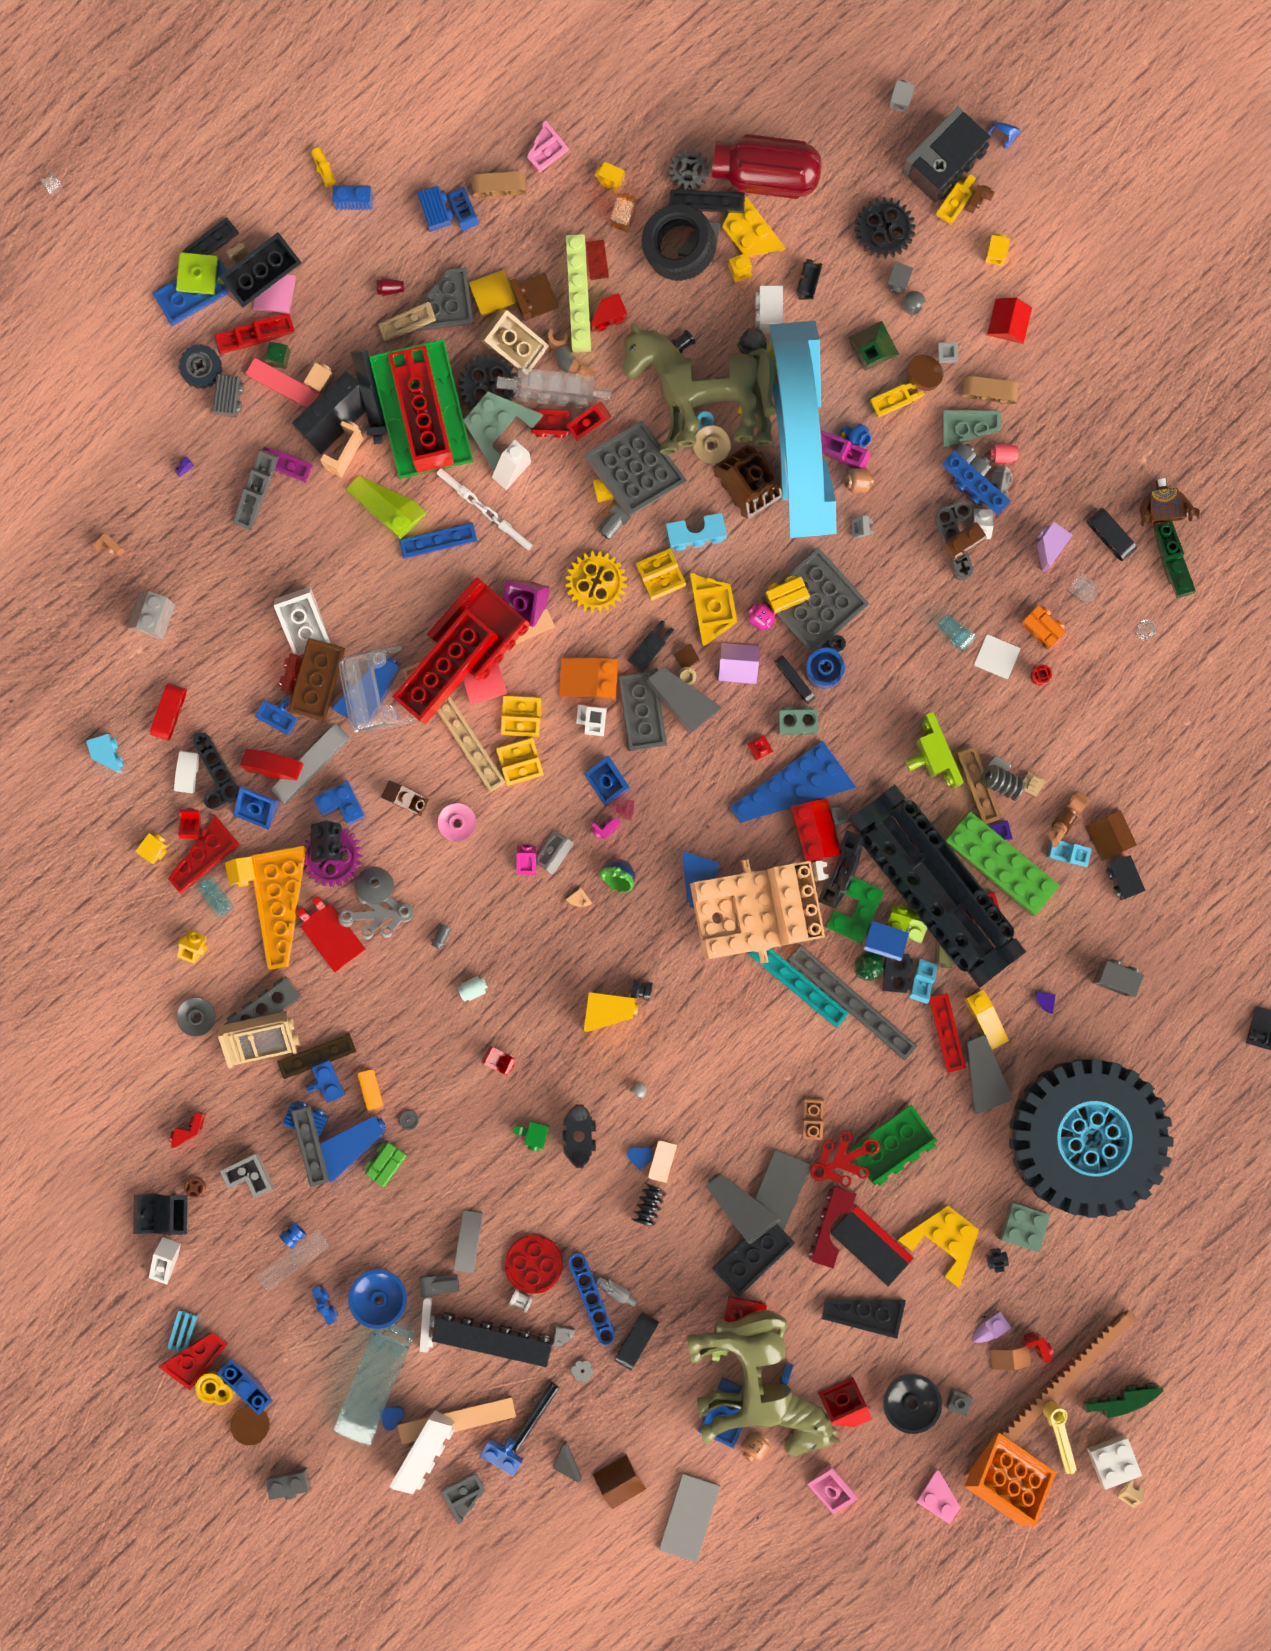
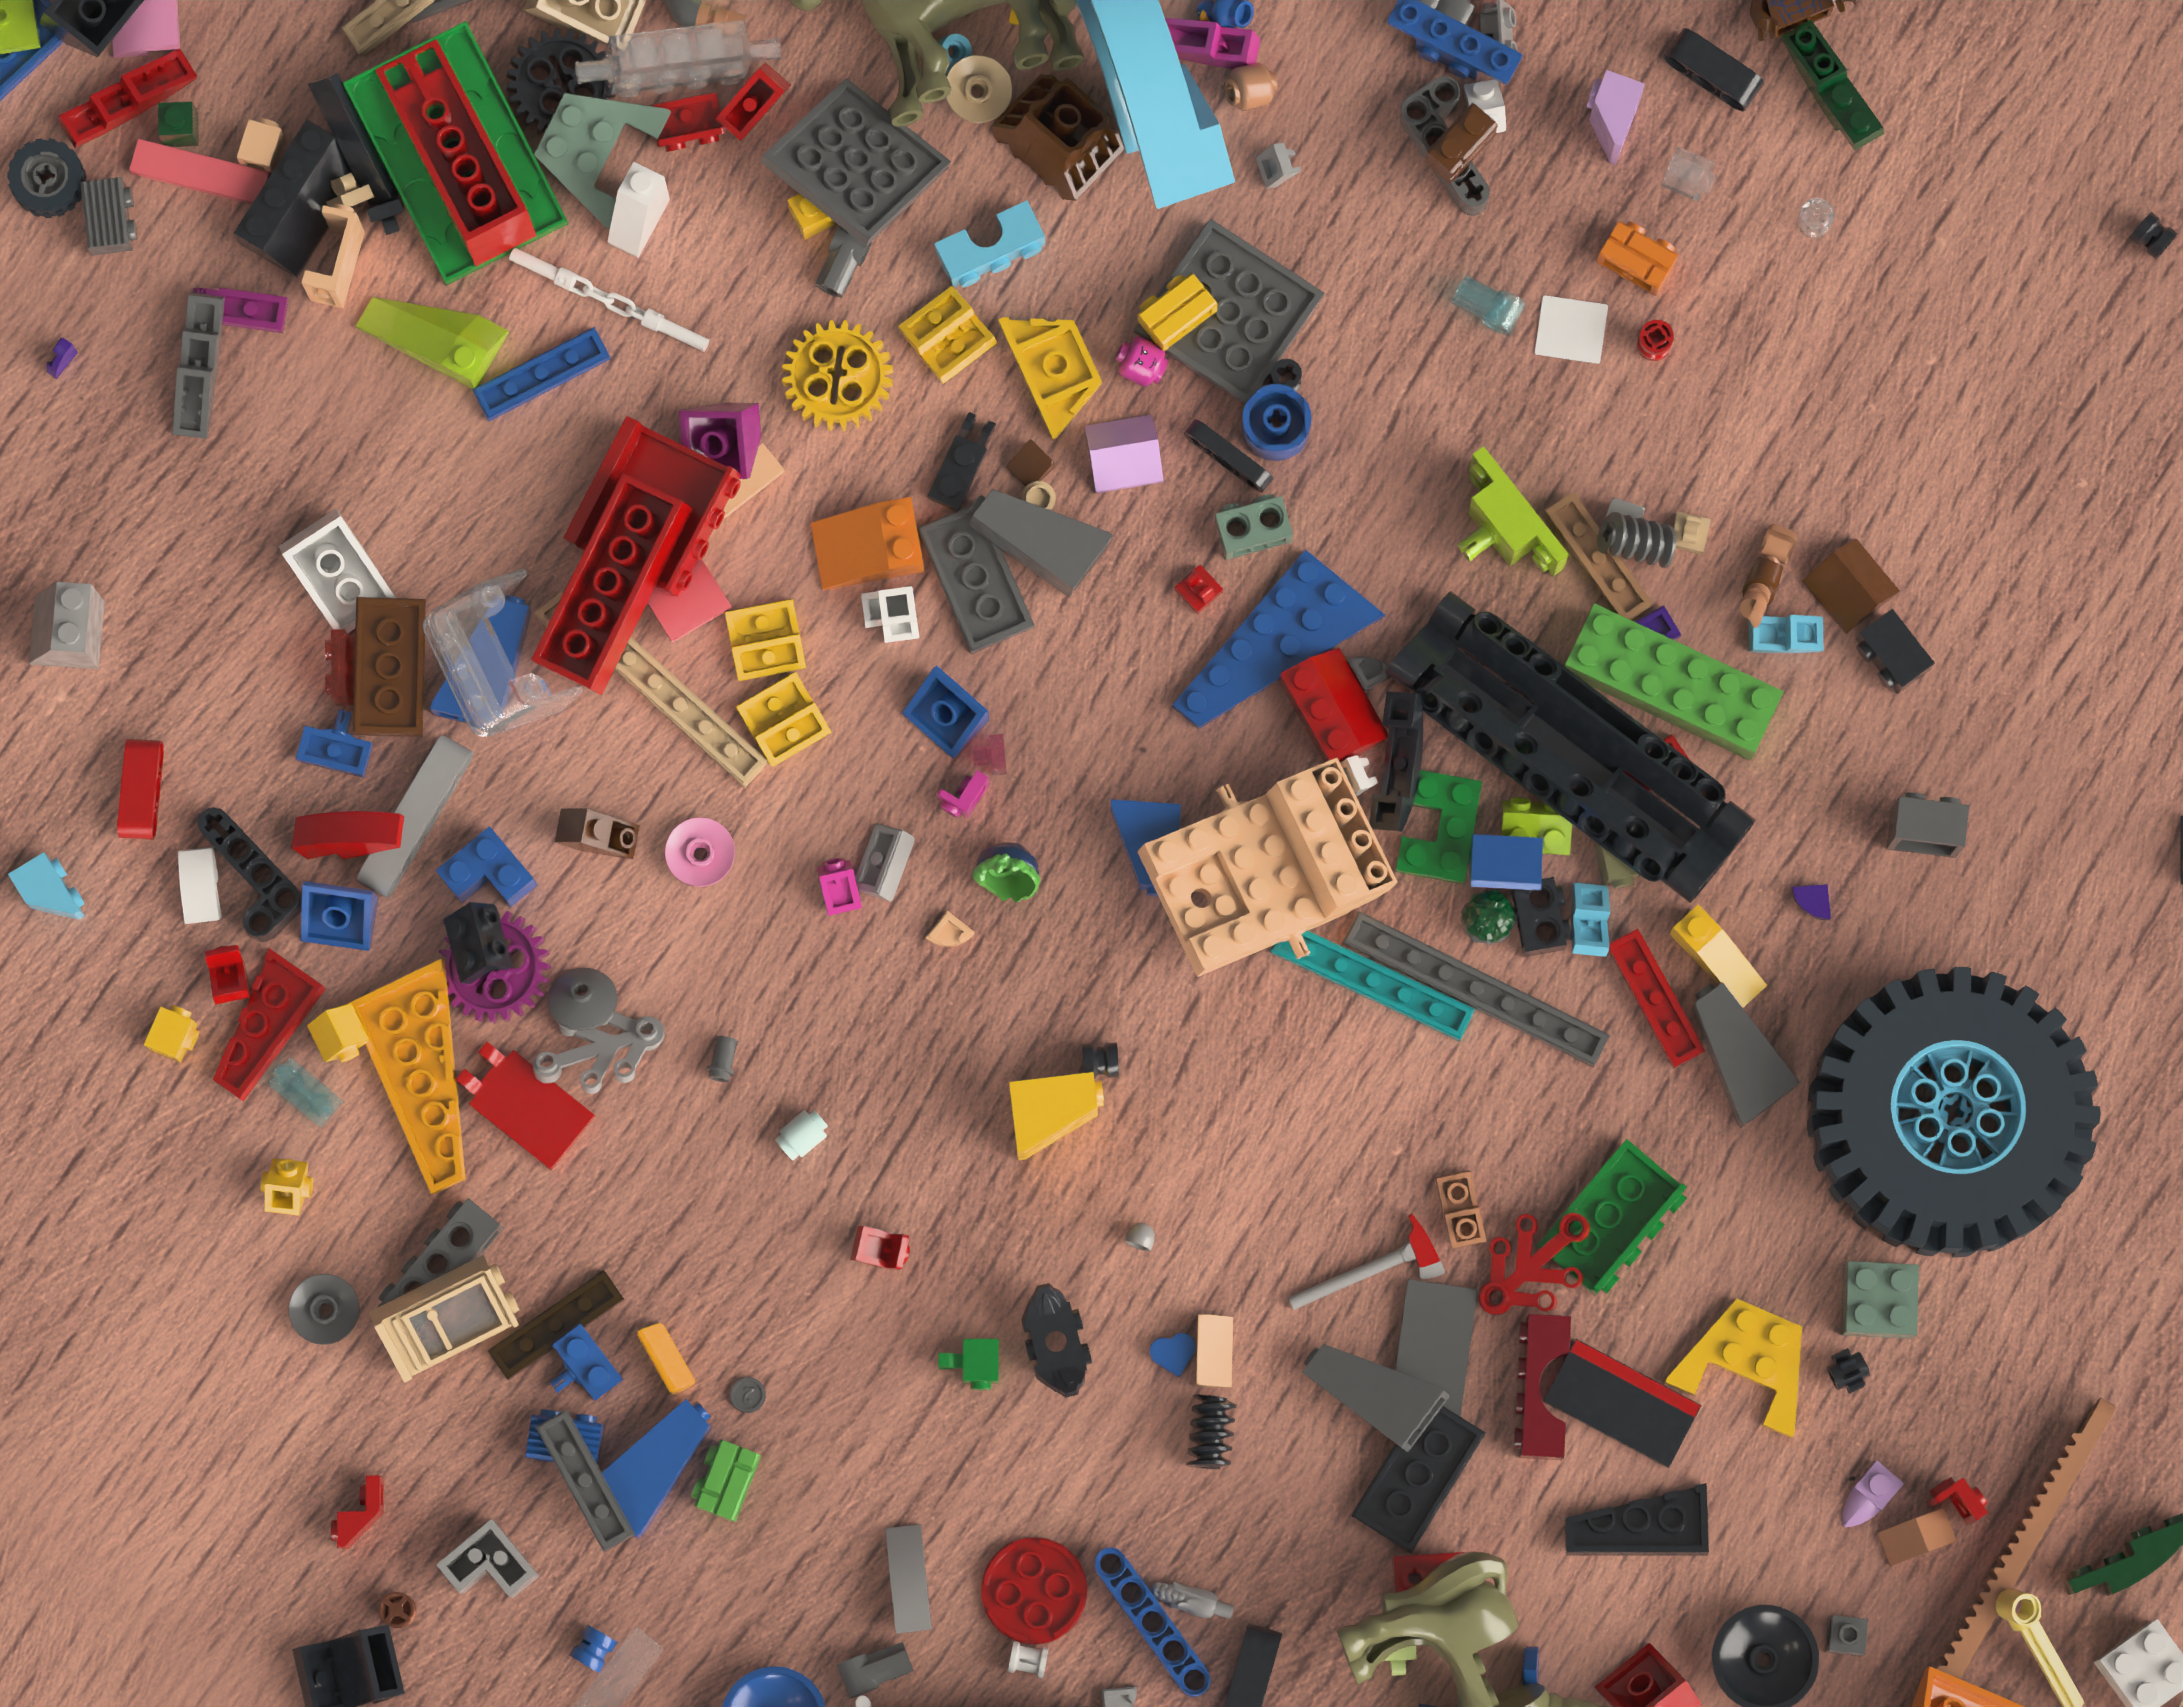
camera: 15 degrees left, 5 degrees down
(358, 416) = (347, 193): none -> tan tile
(784, 1134) = (1416, 1248): none -> light grey piece

